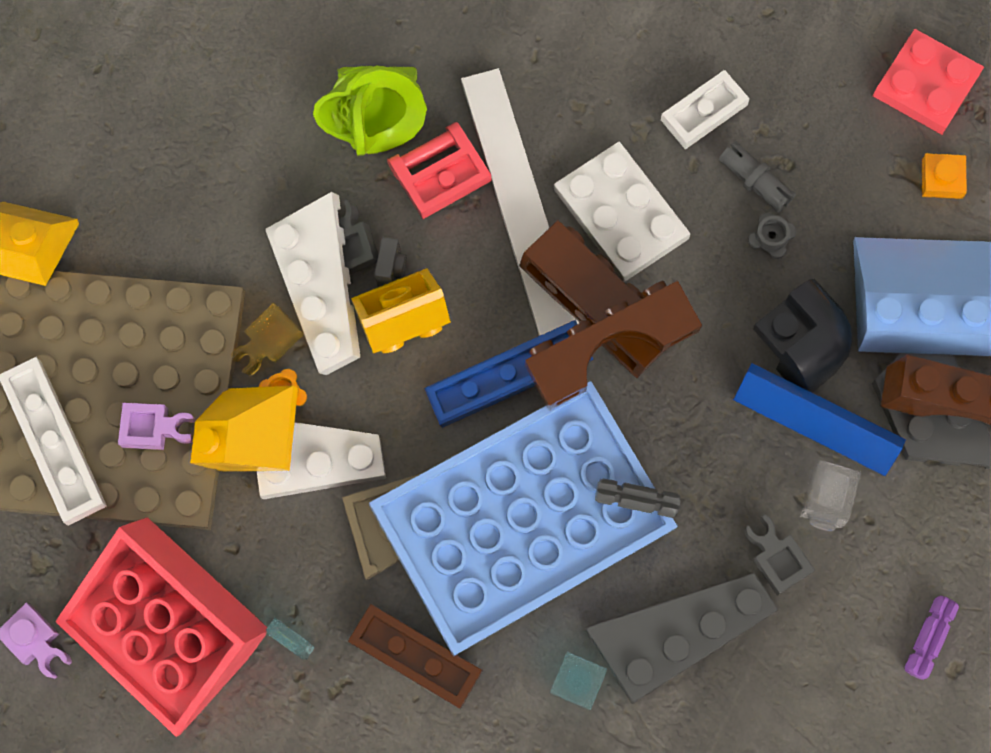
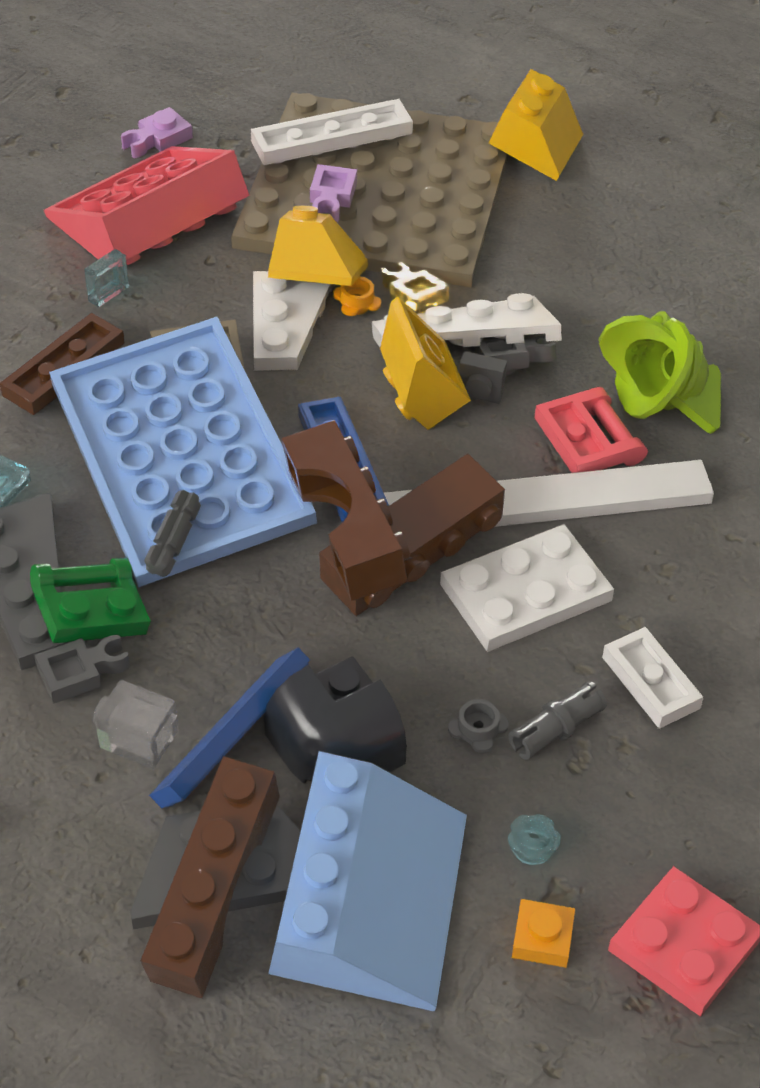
camera: 90 degrees right, 25 degrees down
(720, 553) = (89, 612): none -> green plate
(865, 196) = (533, 850): none -> clear light blue plate

